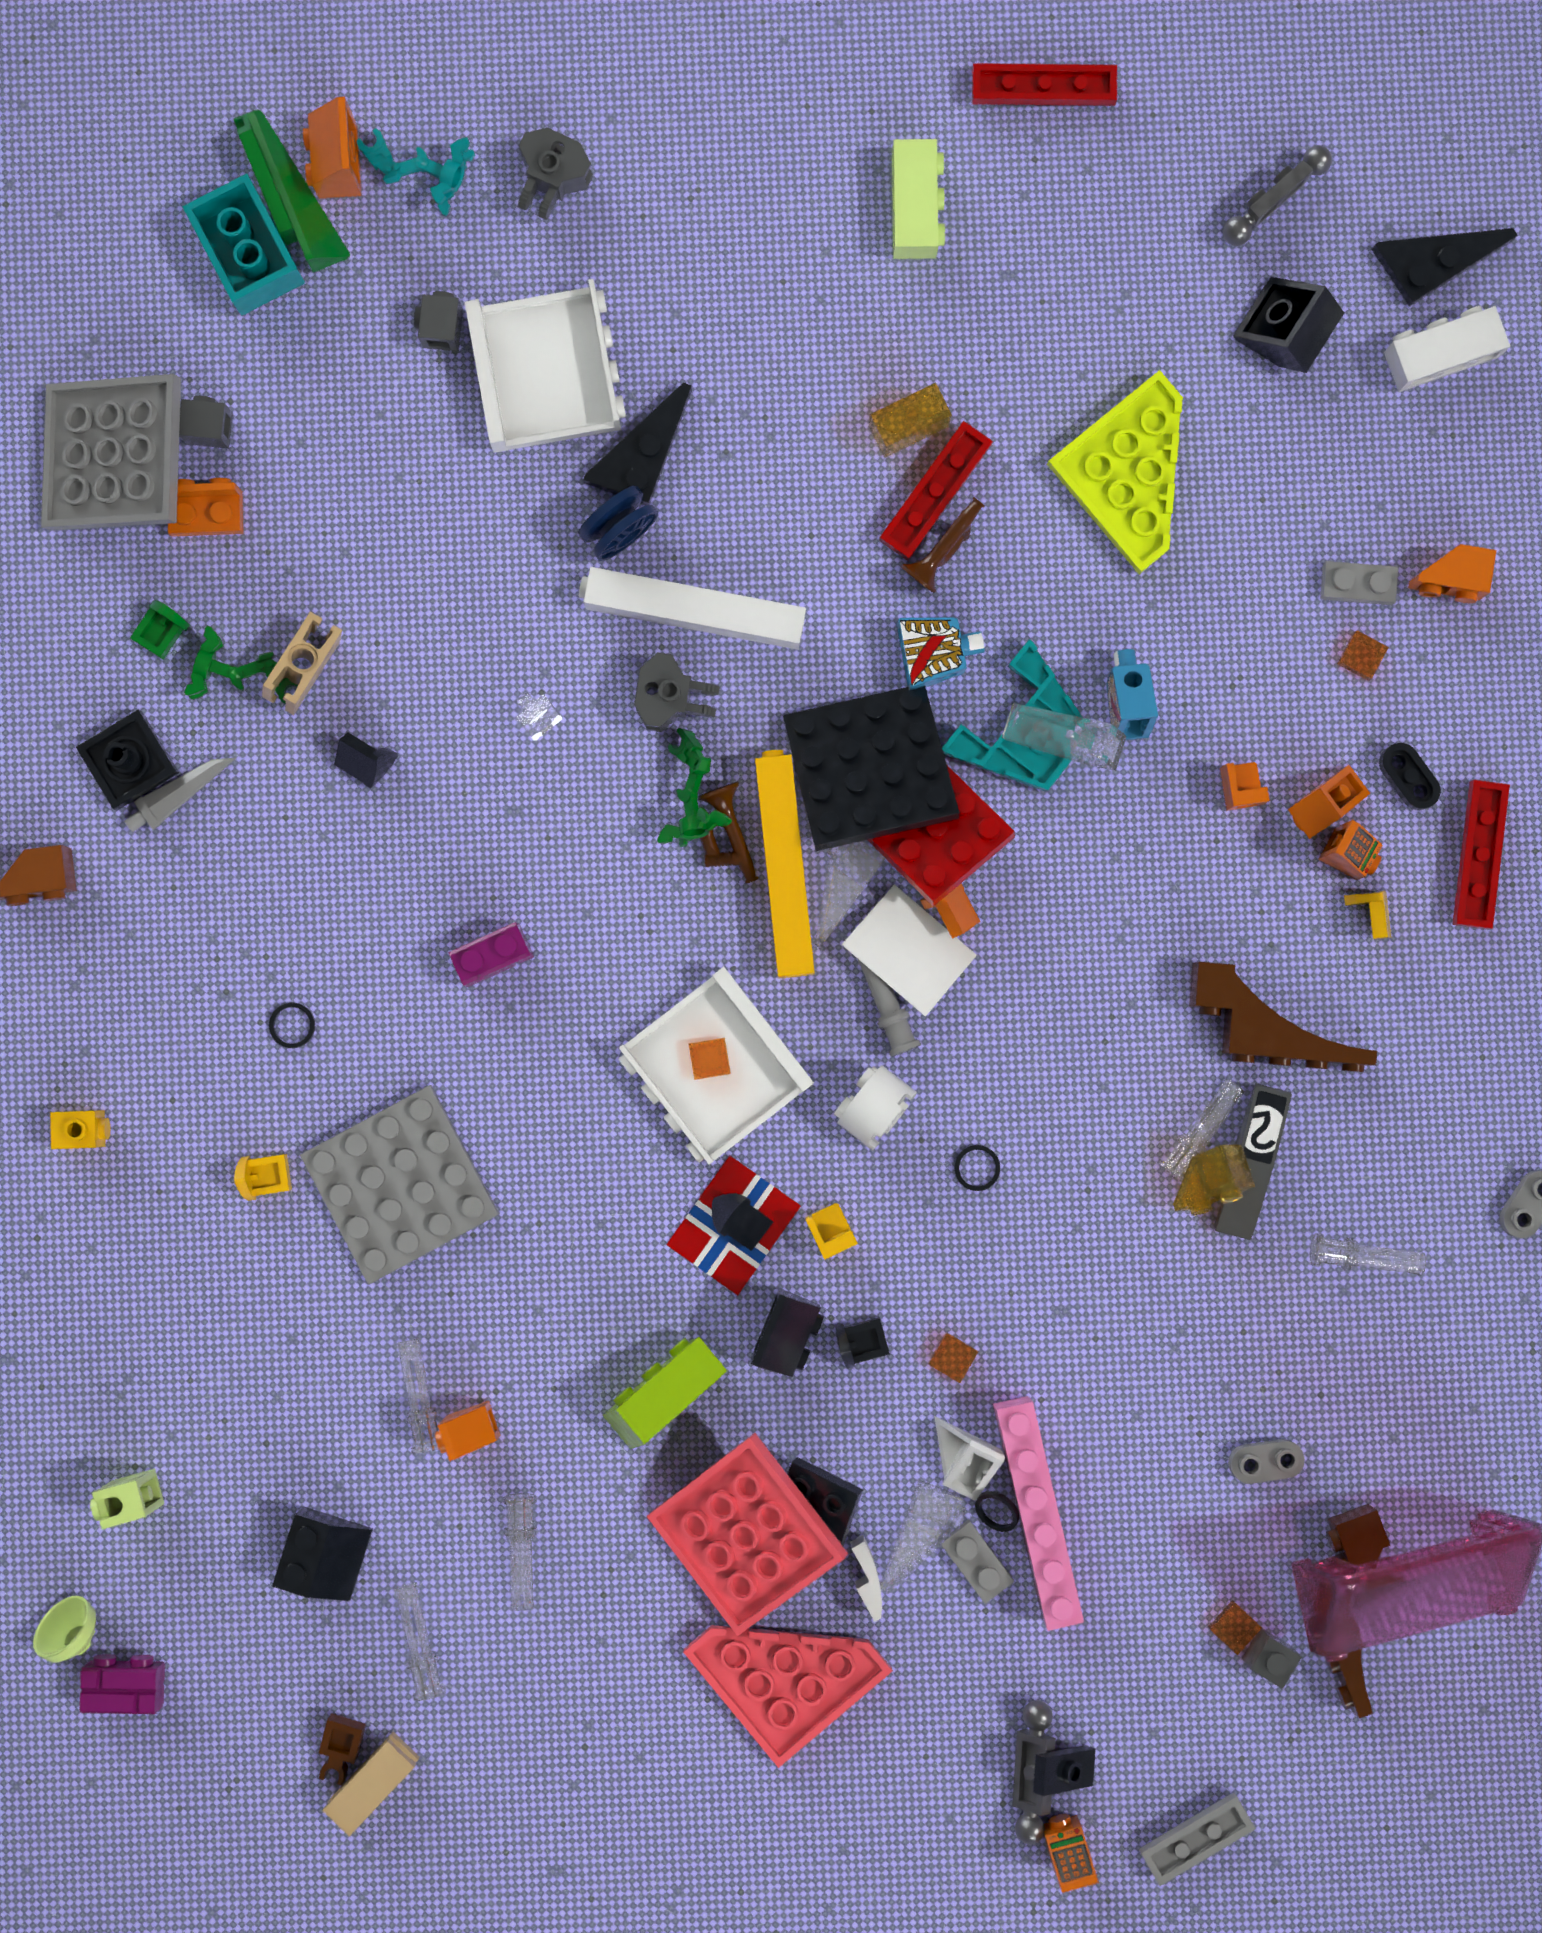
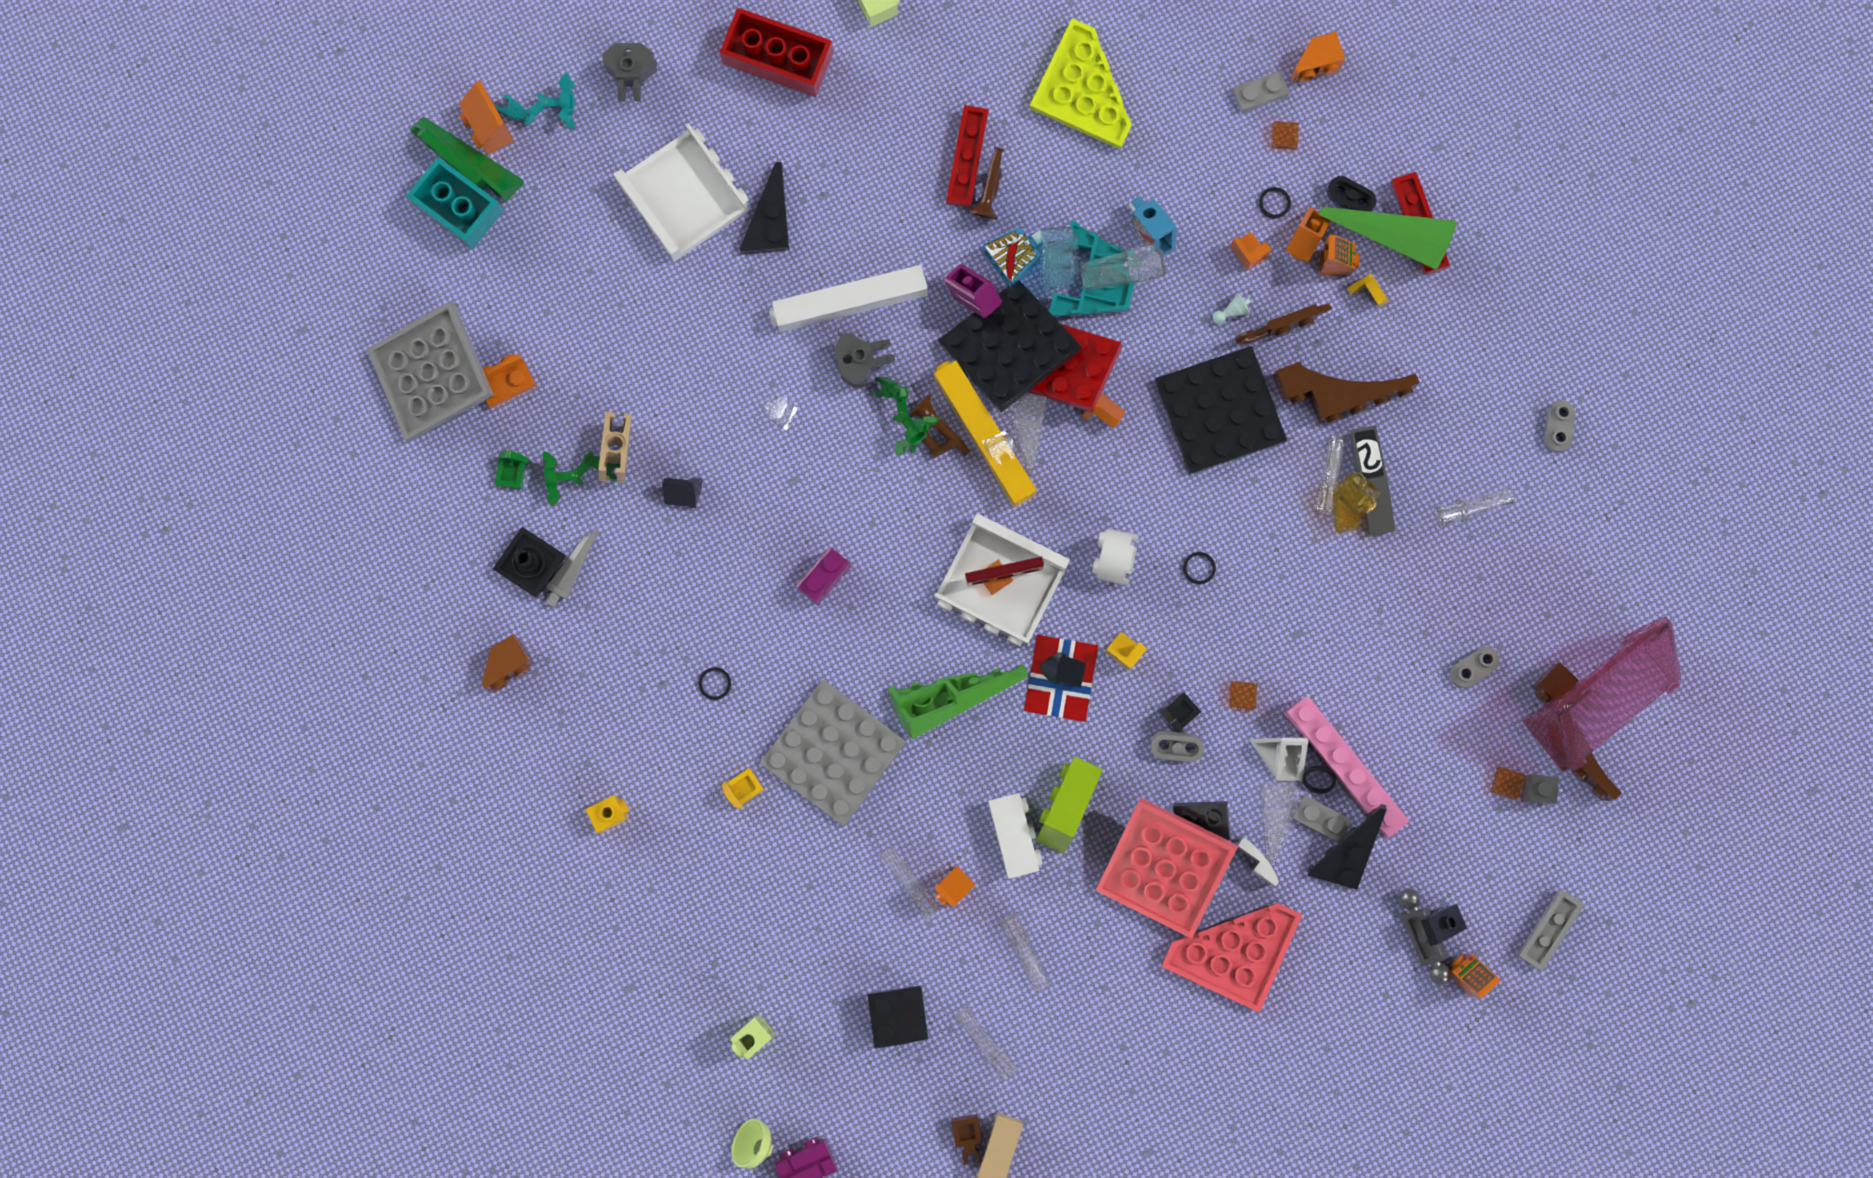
camera: 20 degrees left, 5 degrees down
(205, 422) = (481, 326): dark grey brick -> none
(439, 321) = (601, 195): dark grey brick -> none
(556, 1183) = (933, 704): none -> bright green wedge
(577, 1400) = (1015, 835): none -> white brick
(618, 523) = (776, 266): dark blue wheel -> none
(722, 1059) = (1004, 571): none -> dark red tile
(752, 236) = (776, 52): none -> red brick
(786, 1333) = (1128, 728): black slope -> none
(792, 893) = (999, 444): none -> clear tile
(835, 1385) = (1176, 746): none -> light grey plate
(856, 673) = (972, 290): none -> magenta brick
(892, 1018) = (1099, 497): light grey pin -> none
(909, 420) = (930, 120): clear yellow brick -> none
(909, 950) = (1089, 449): white sticker -> none
(986, 681) = (1057, 257): none -> clear light blue slope
(986, 1629) = (1348, 859): none -> black wing
(1103, 977) = (1220, 410): none -> black plate
(1187, 854) = (1236, 307): none -> light aqua piece
(1235, 905) = (1282, 325): none -> reddish brown plate
(1325, 738) = (1274, 216): none -> black piece
(1463, 871) = (1413, 236): none -> bright green wedge

